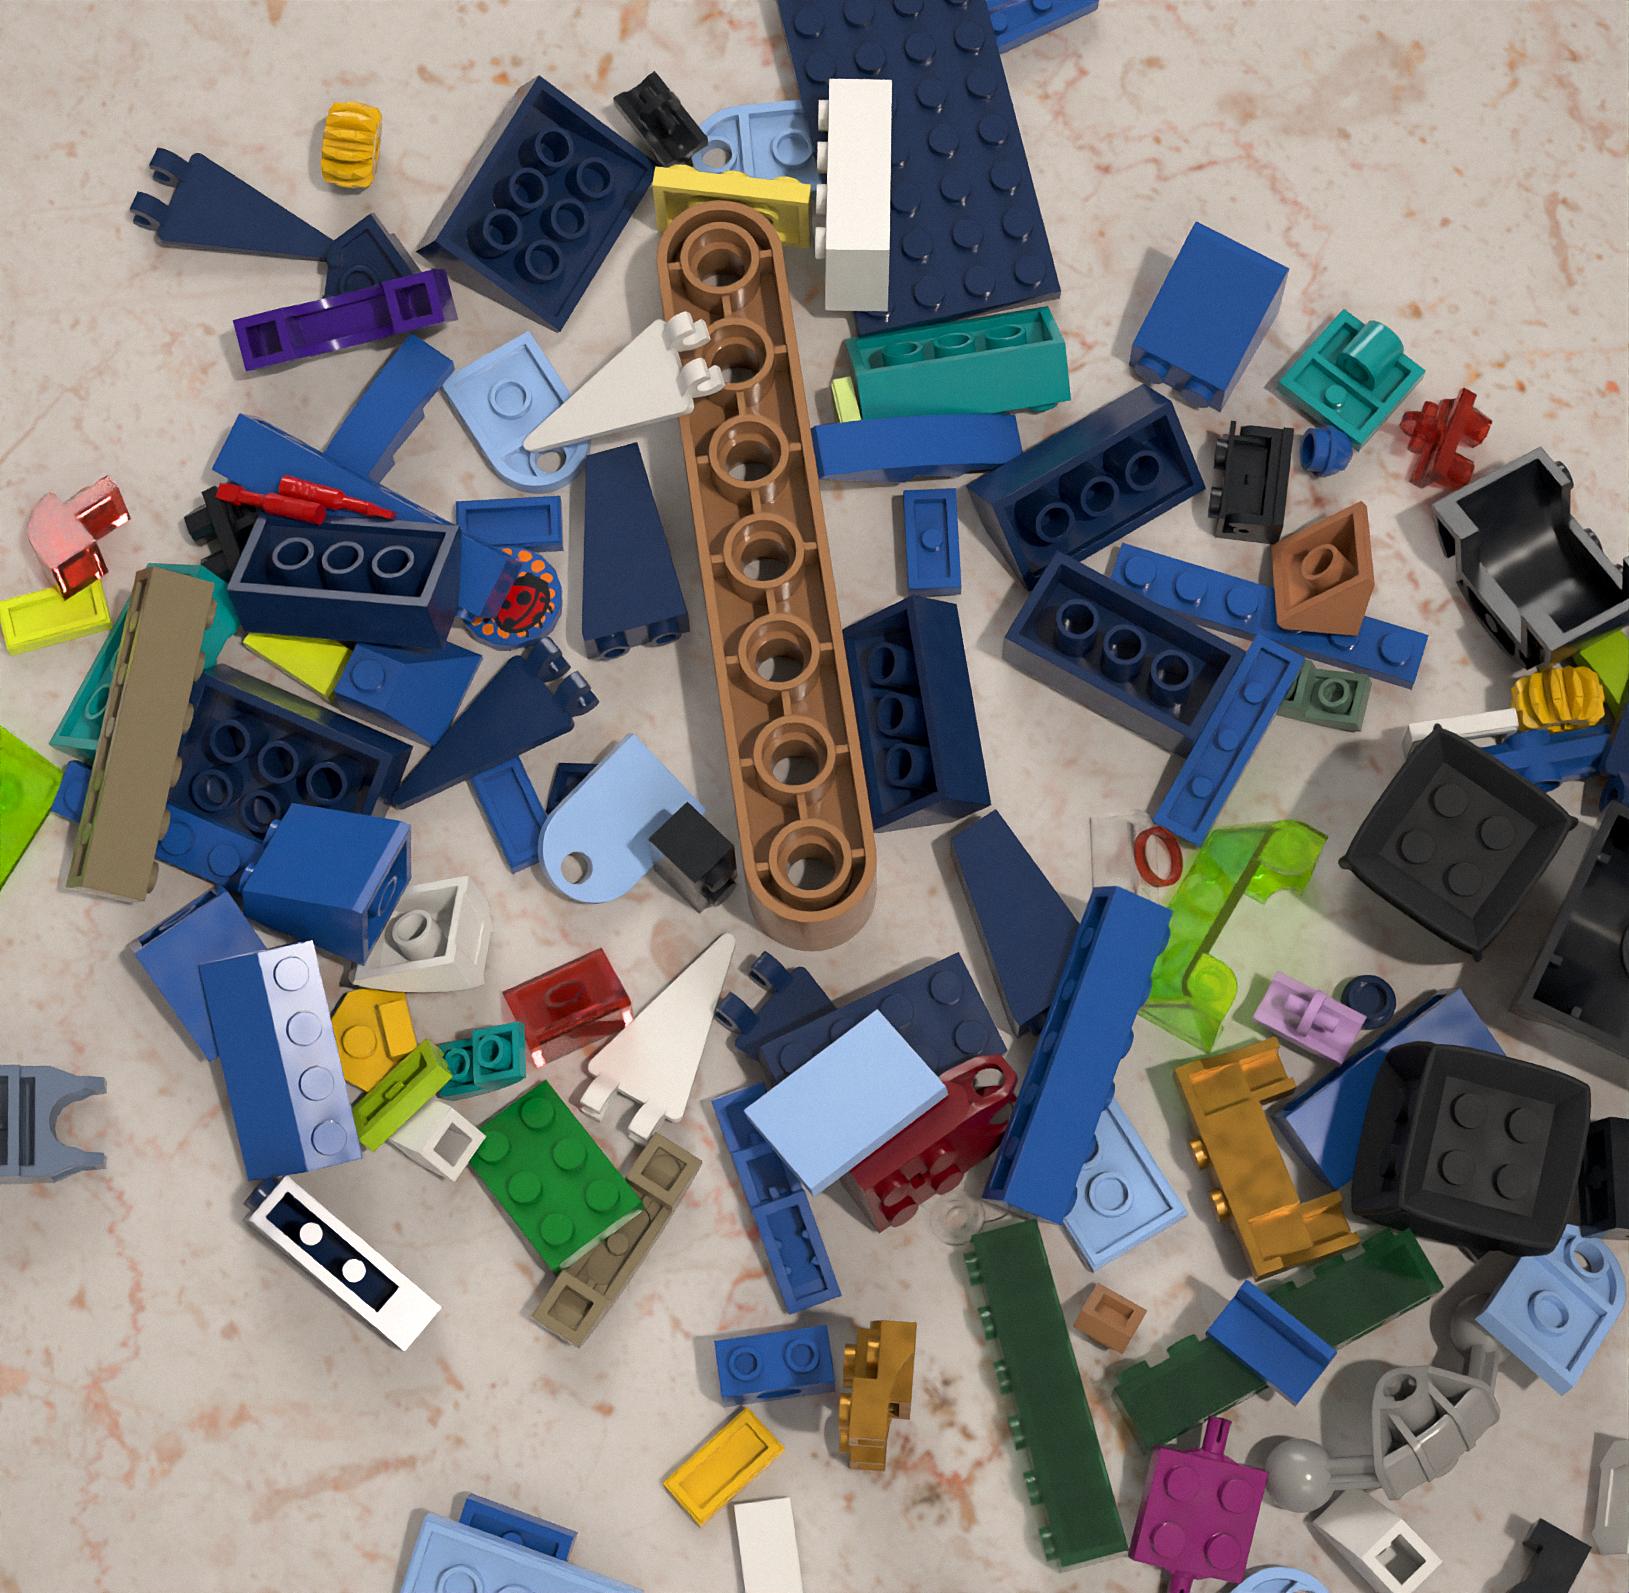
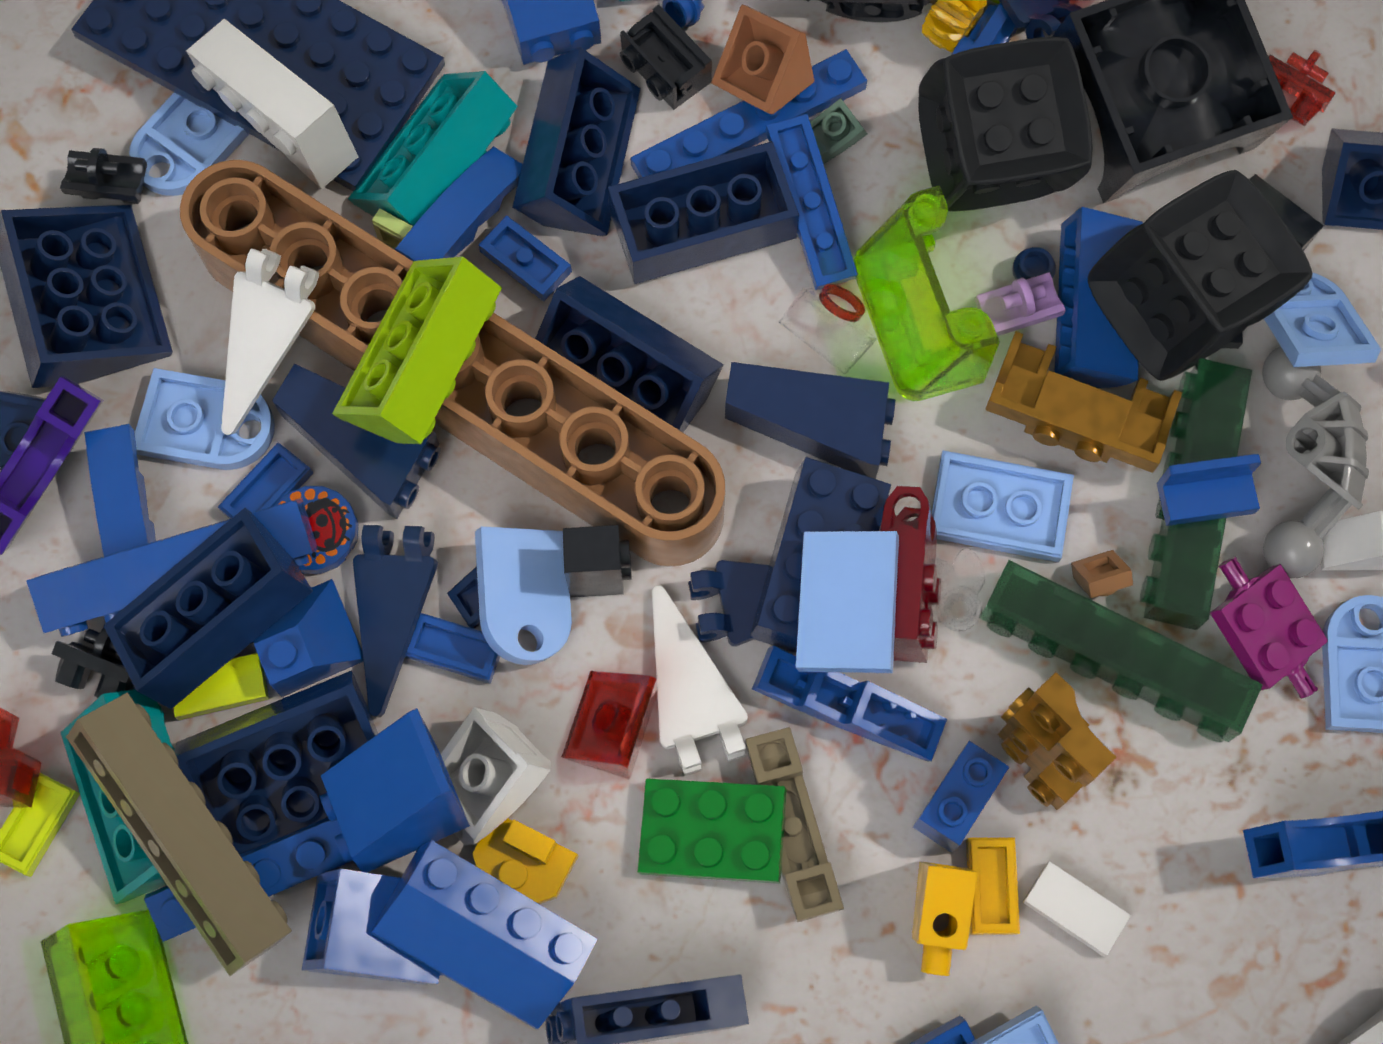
camera: 50 degrees left, 0 degrees up
(273, 503) = (108, 612): red piece -> none
(330, 497) = (141, 574): red piece -> none
(400, 1094) = (576, 876): lime tile -> none
(438, 1139) = (622, 879): white brick -> none
(485, 1061) = (602, 805): teal slope -> none
(674, 1427) = (938, 892): none -> yellow torso
(730, 534) = (419, 350): none -> lime slope
(780, 200) = (163, 192): light yellow plate -> none
(1078, 1055) = (932, 445): blue brick -> none
(1480, 728) = (907, 101): white tile -> none

